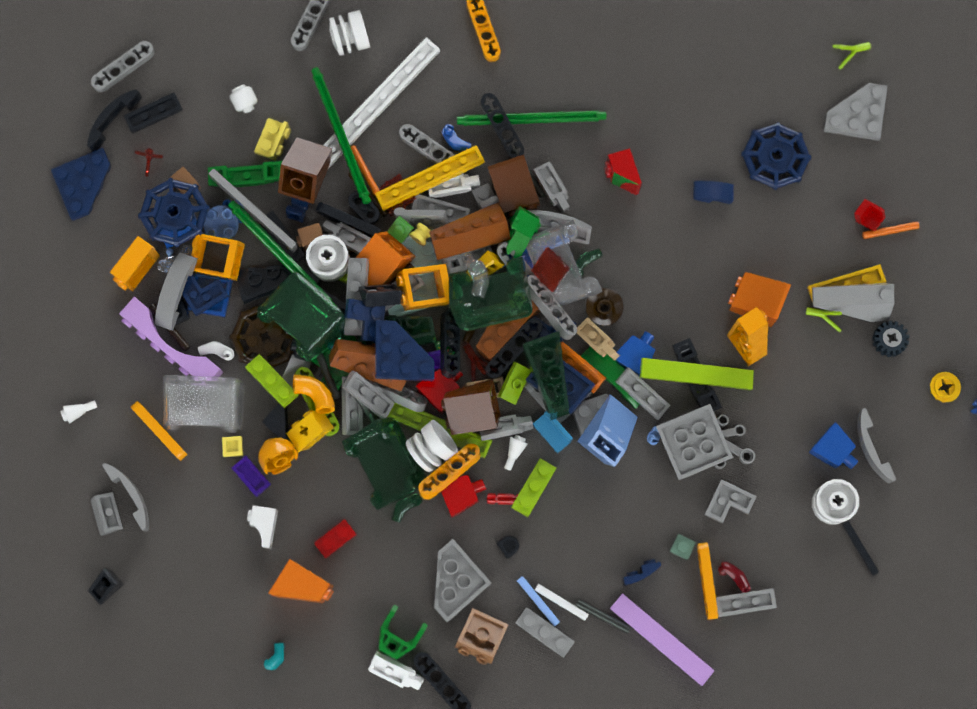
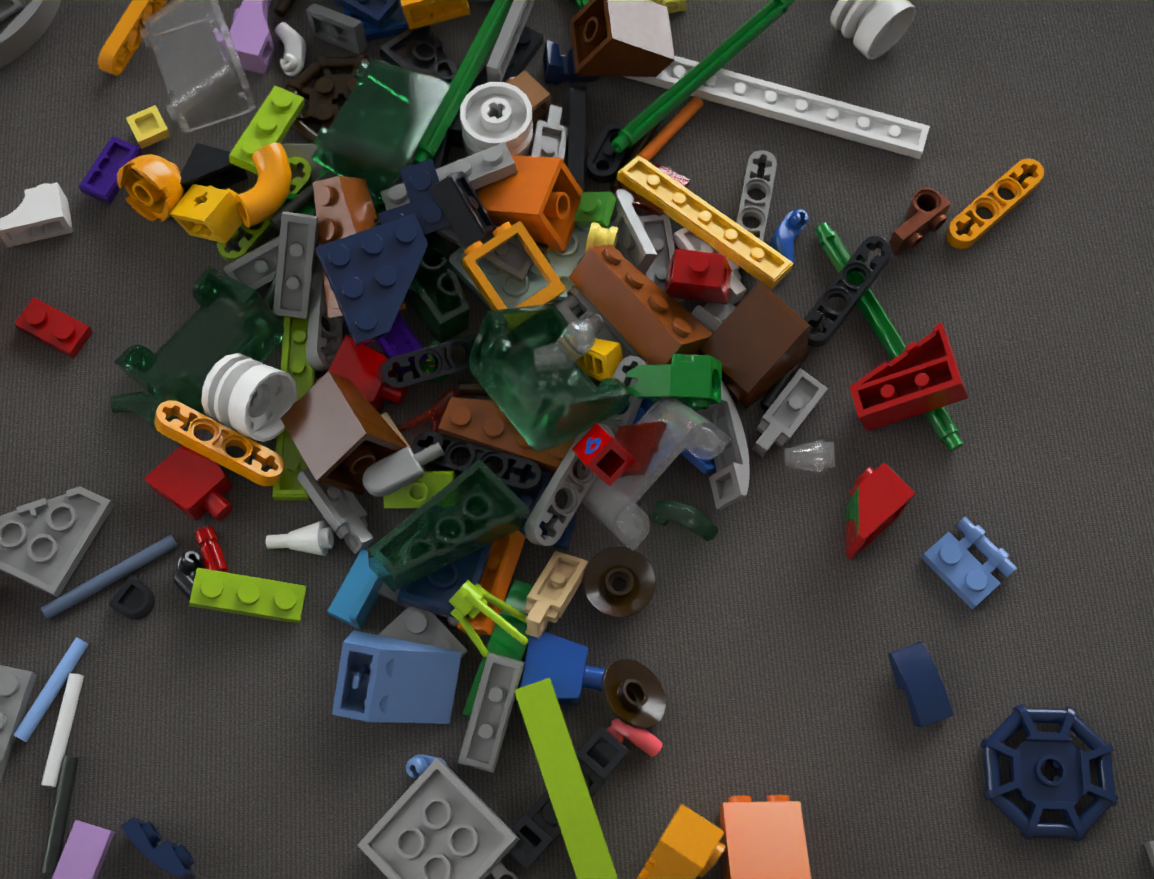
camera: 65 degrees right, 10 degrees down
(219, 319) = (337, 28): none -> dark grey plate
(465, 197) = (698, 276): none -> red torso
(483, 79) = (920, 221): none -> copper plate
(491, 554) = (109, 577): none -> sand blue bar
(503, 387) = (398, 470): none -> light grey piece
(508, 515) = (186, 571): none -> black arm
(548, 283) = (603, 454): none -> red brick
(569, 119) = (911, 383): none -> red wedge
(581, 185) = (812, 456): none -> clear cone
(589, 379) = (471, 600): none -> lime plant
(662, 324) = (633, 693): none -> dark brown dish
(666, 145) = (961, 569): none -> medium blue plate
(681, 331) = (640, 737): none -> coral arm

